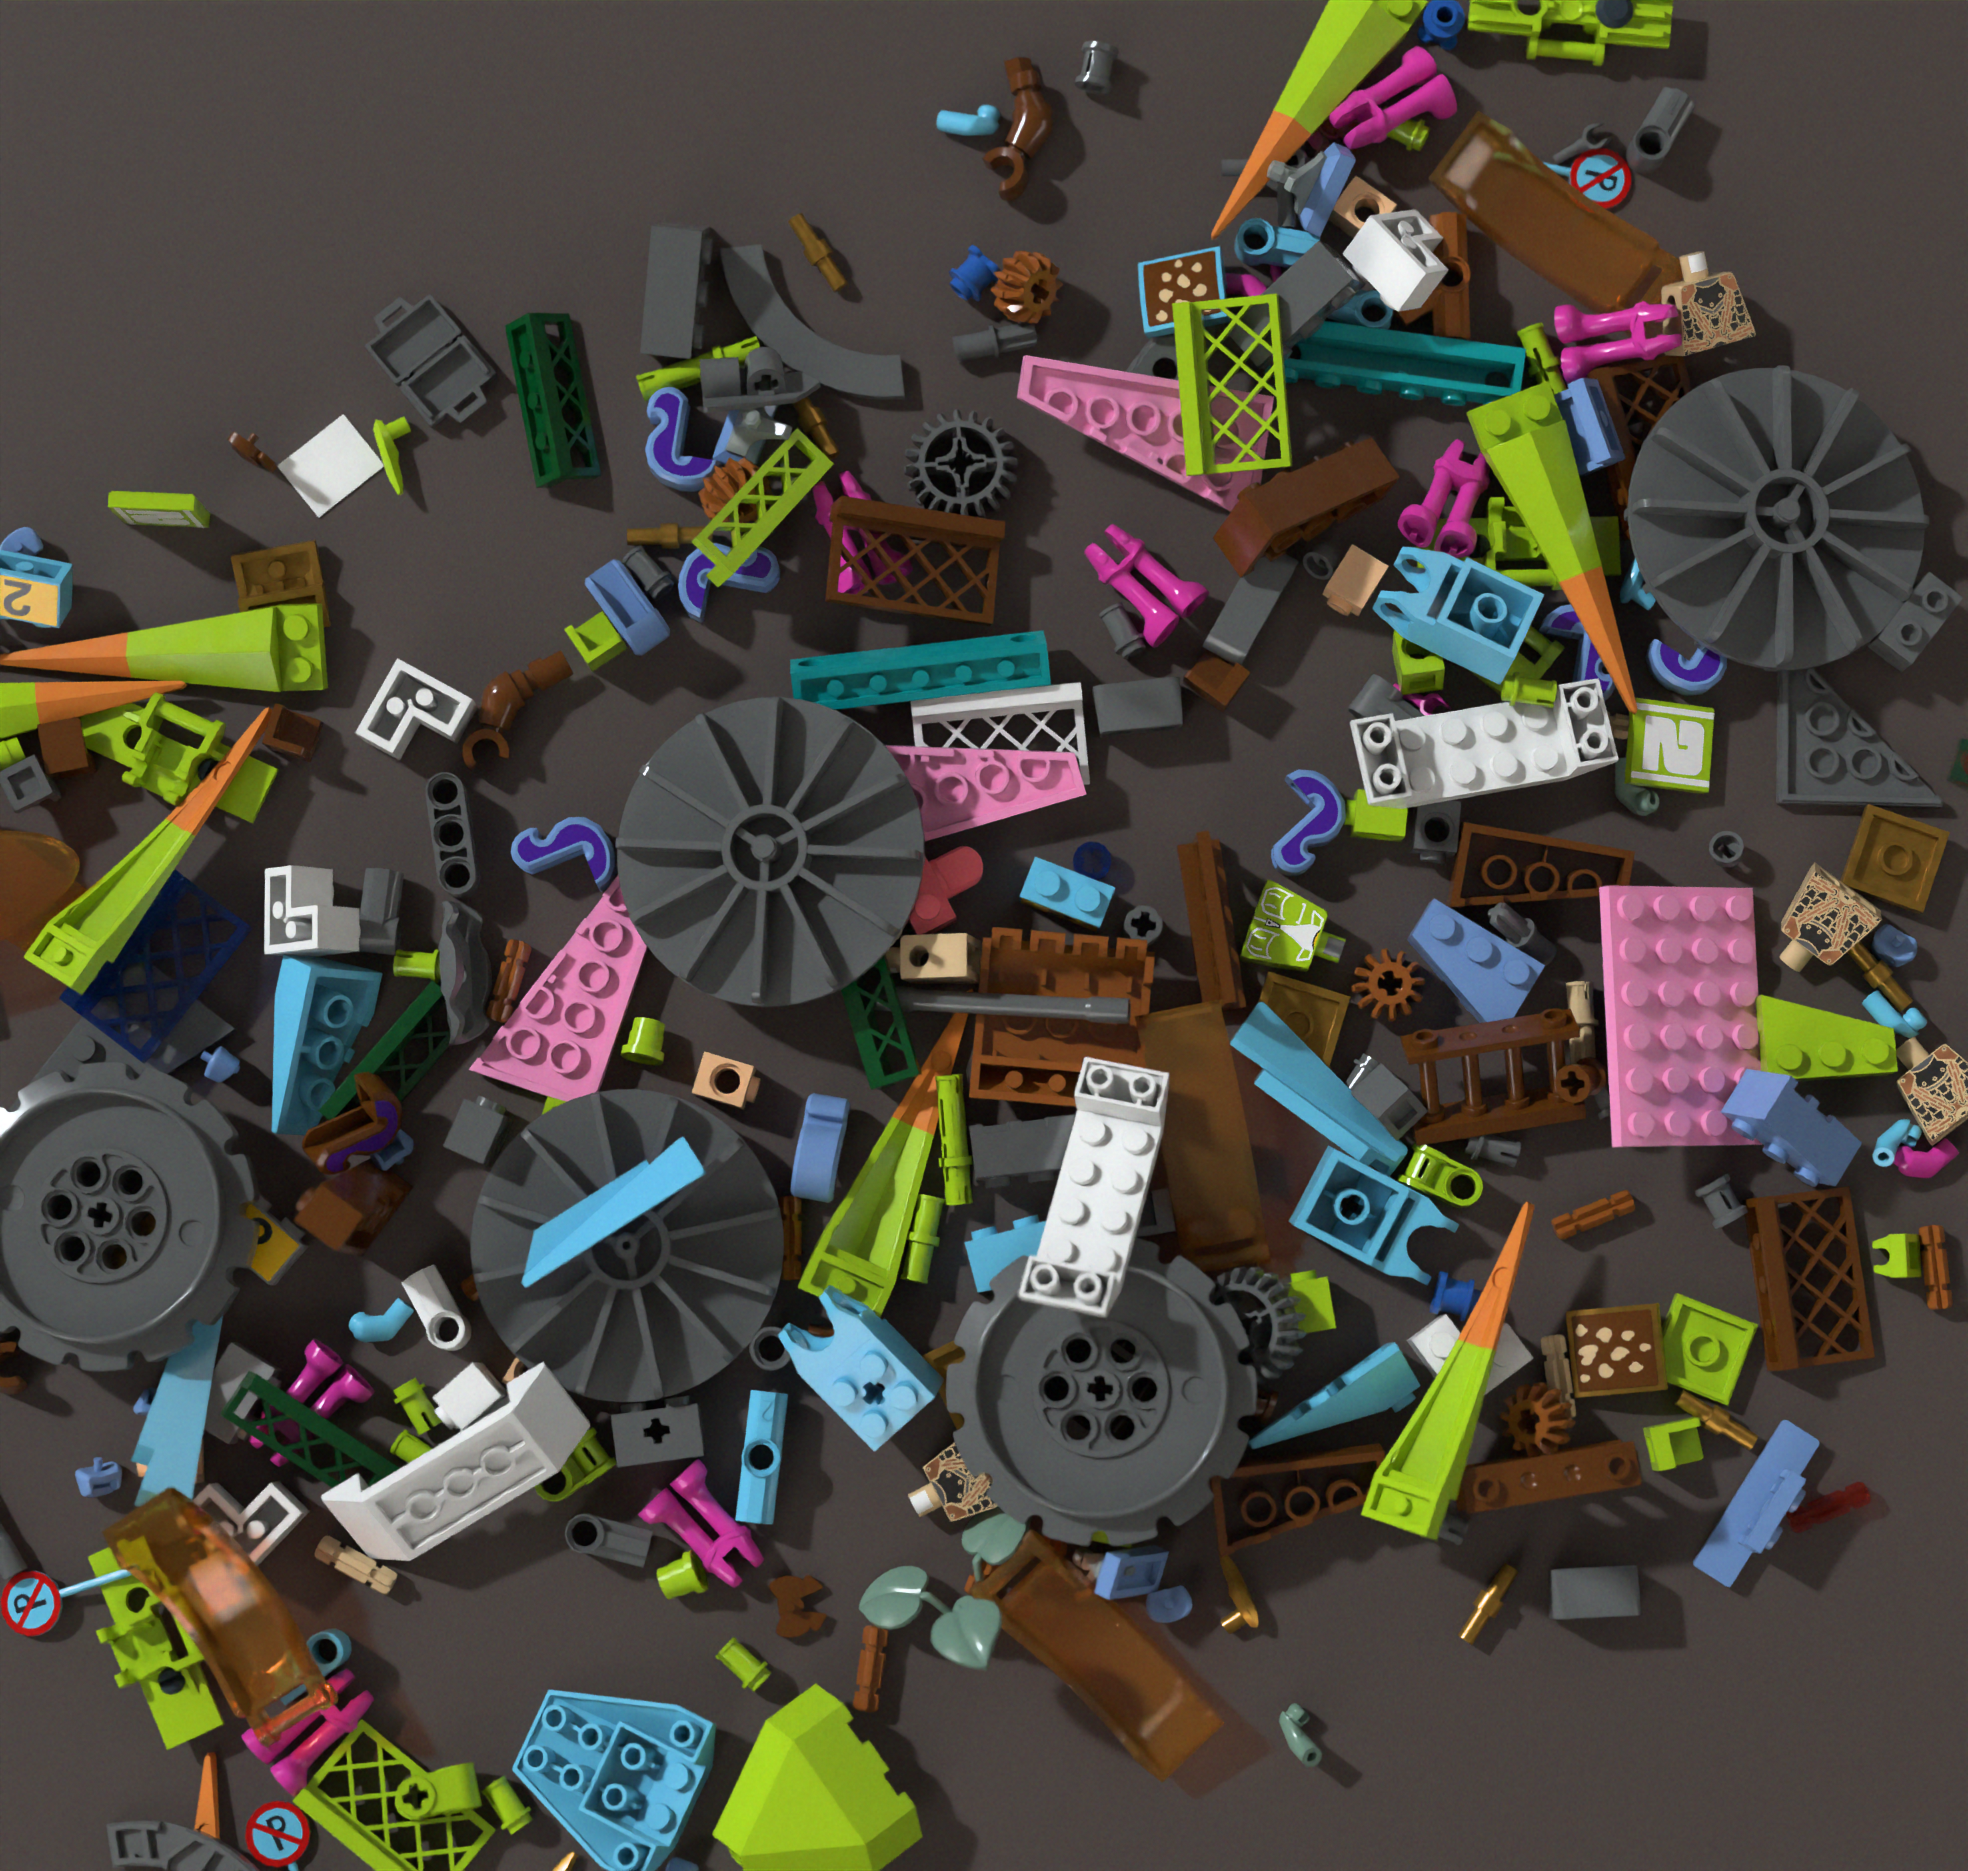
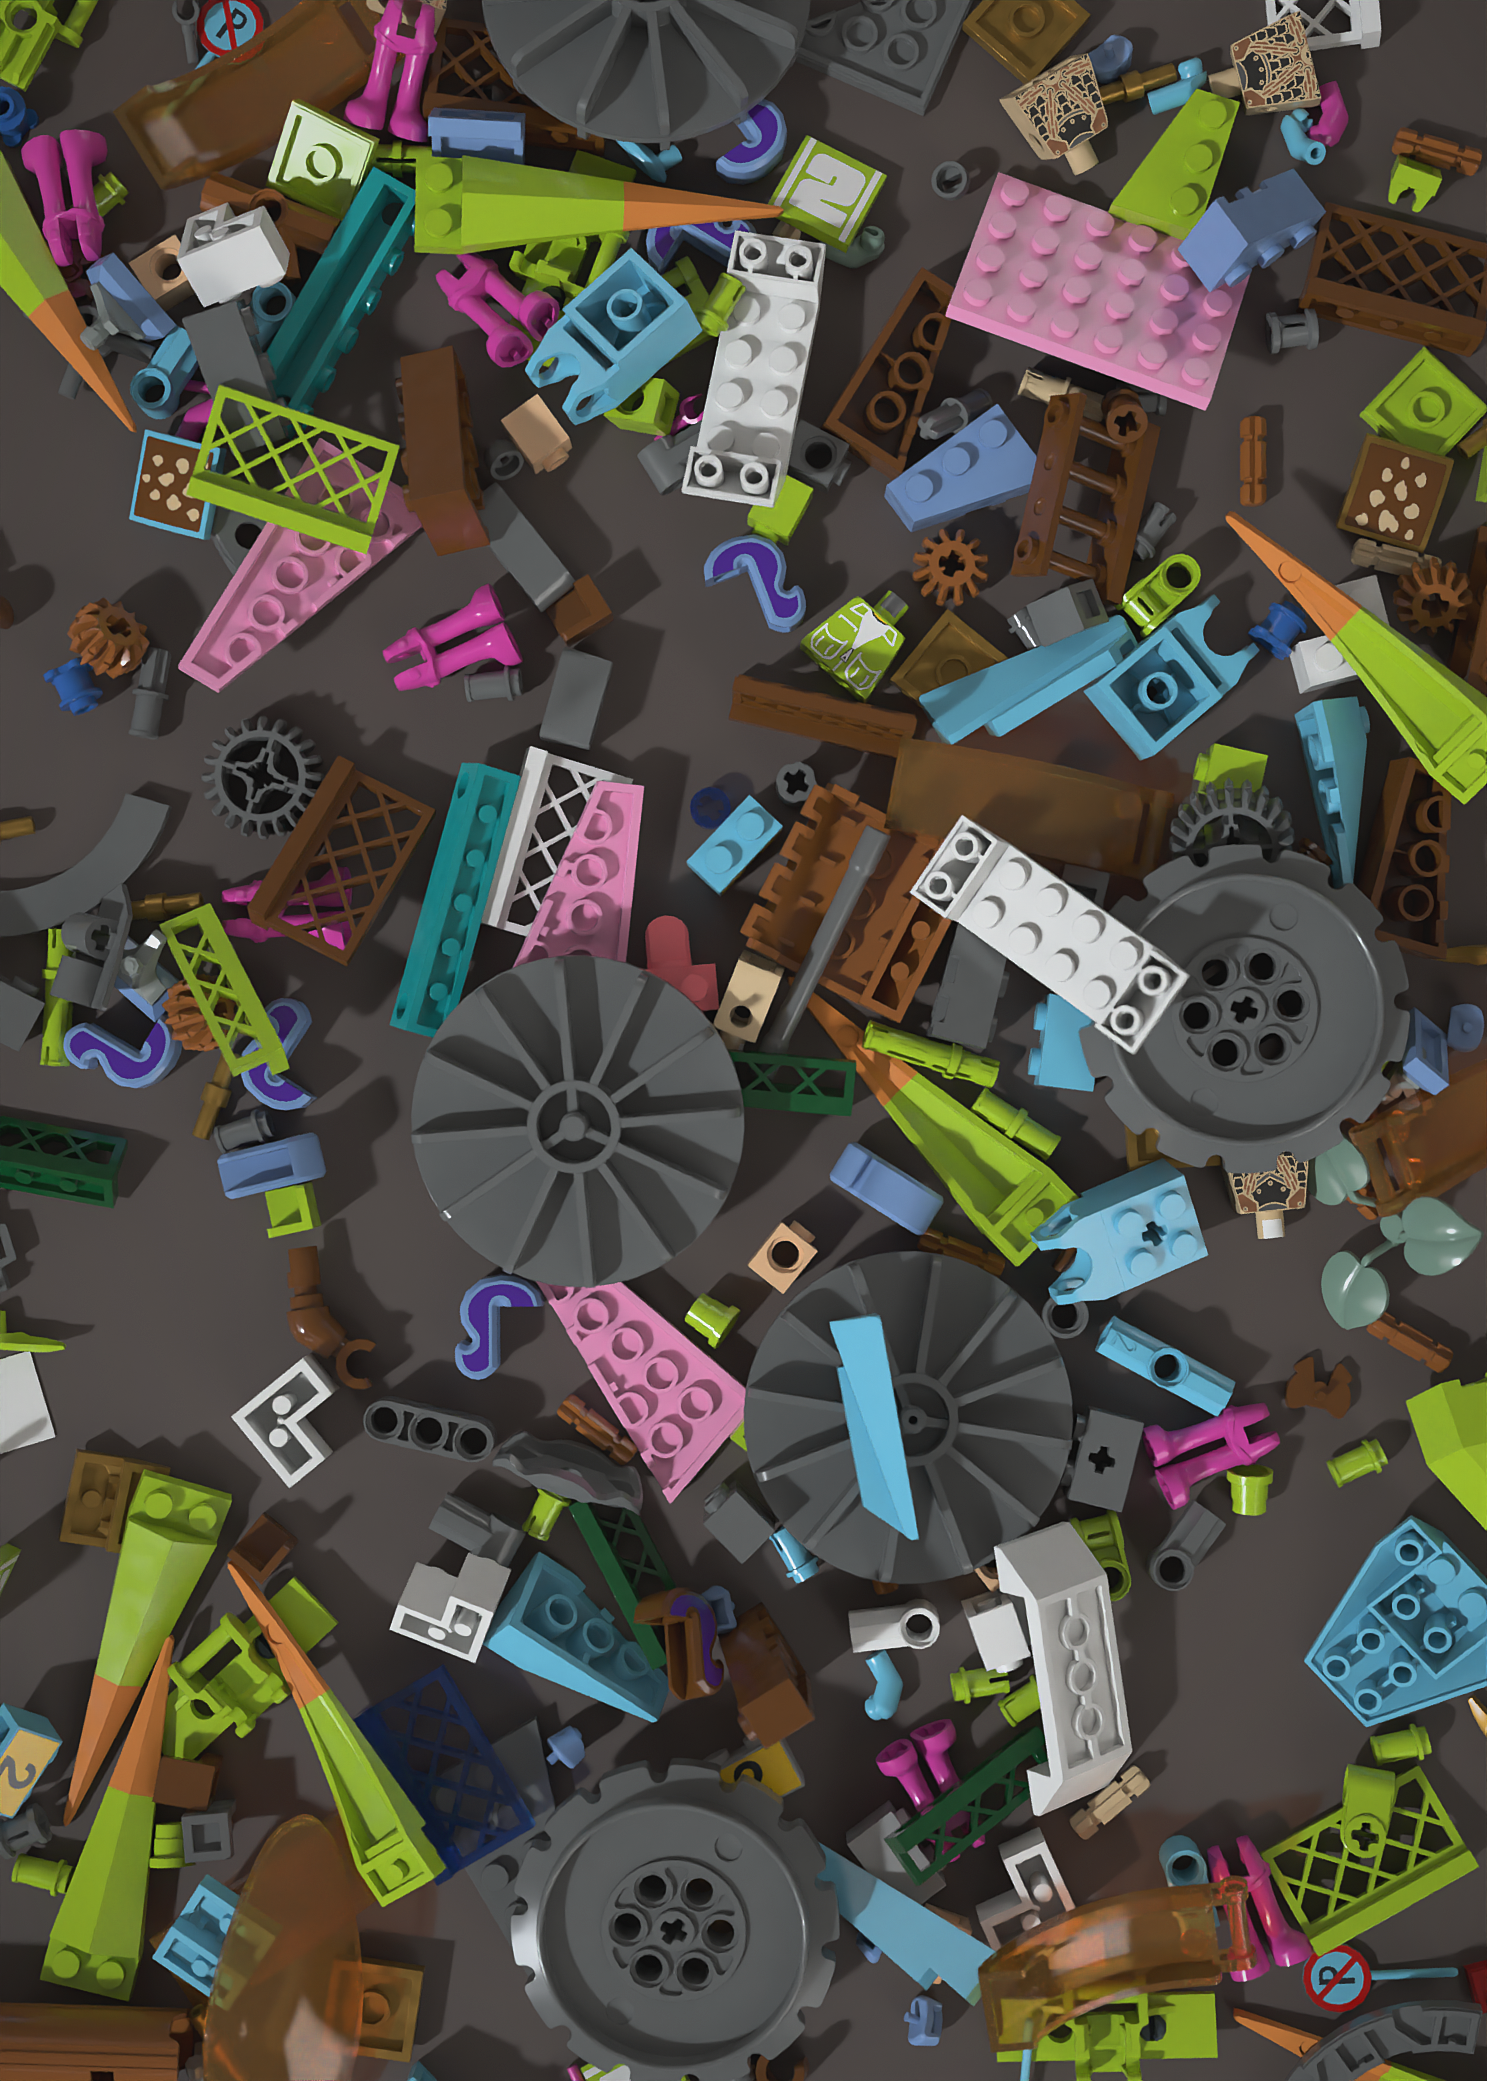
camera: 70 degrees left, 5 degrees up
(466, 1197) = (795, 1555): none -> medium azure pin
(1513, 302) = (321, 160): none -> lime tile

